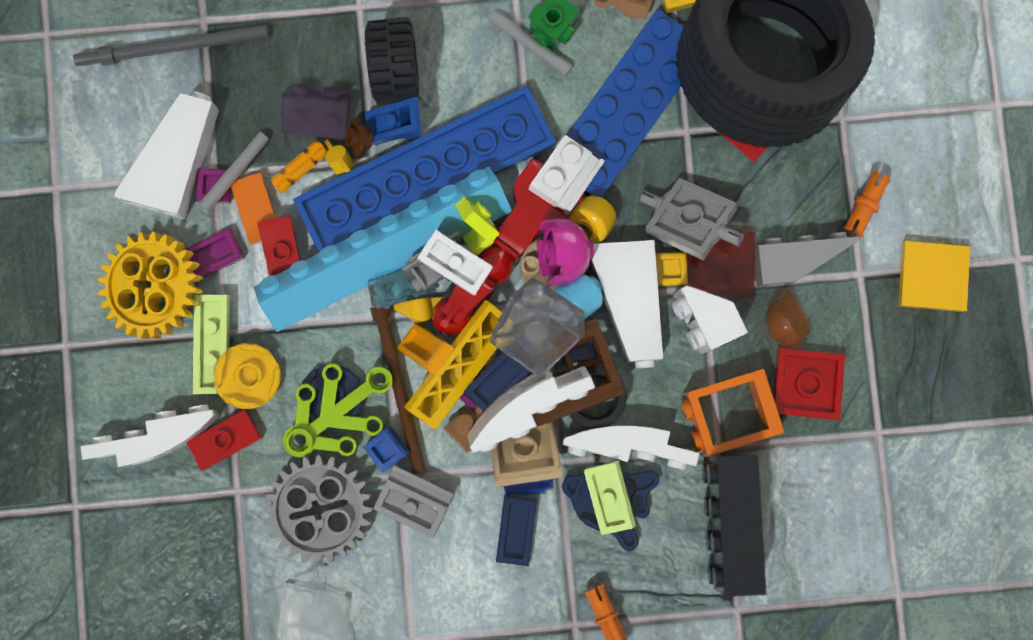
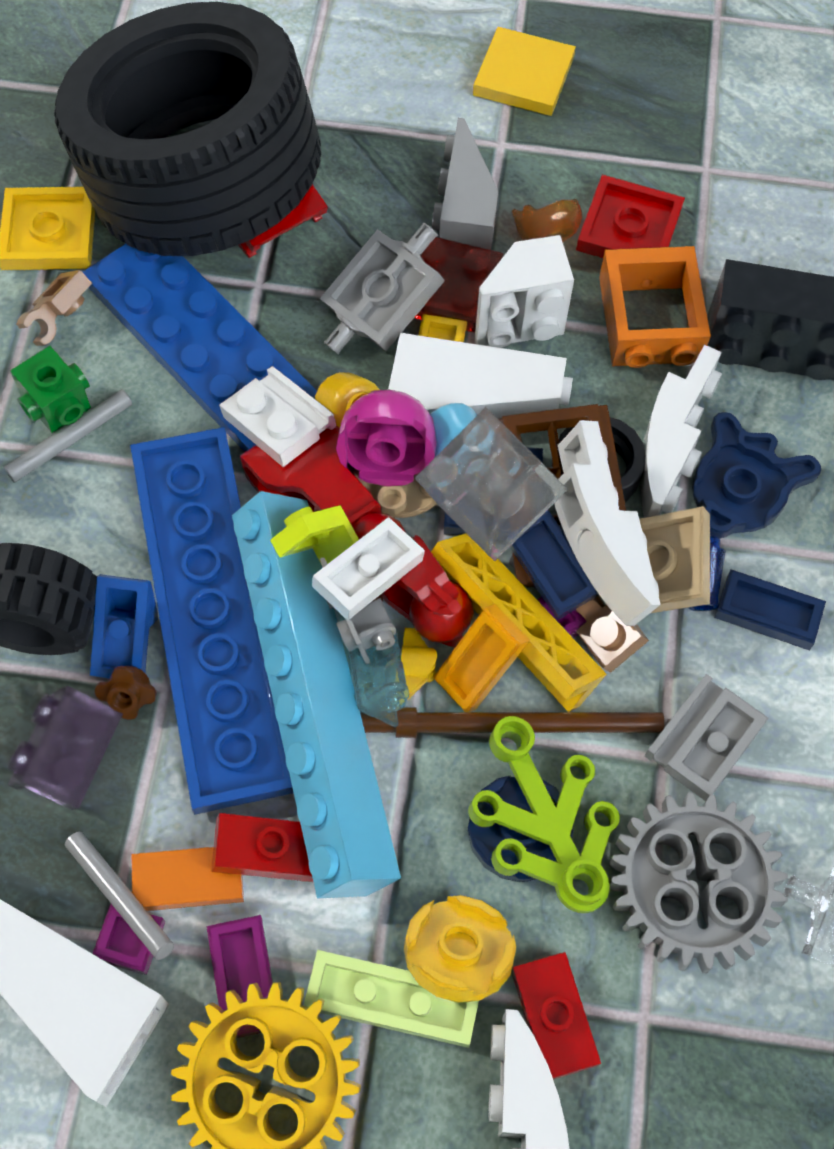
camera: 75 degrees left, 20 degrees down
(299, 166) = (142, 794): light orange axle -> none
(338, 158) = (149, 729): yellow piece -> none
(386, 449) = (619, 759): blue tile -> none
(609, 497) = (747, 465): yellowish green plate -> none
(866, 204) = (416, 111): orange pin -> none

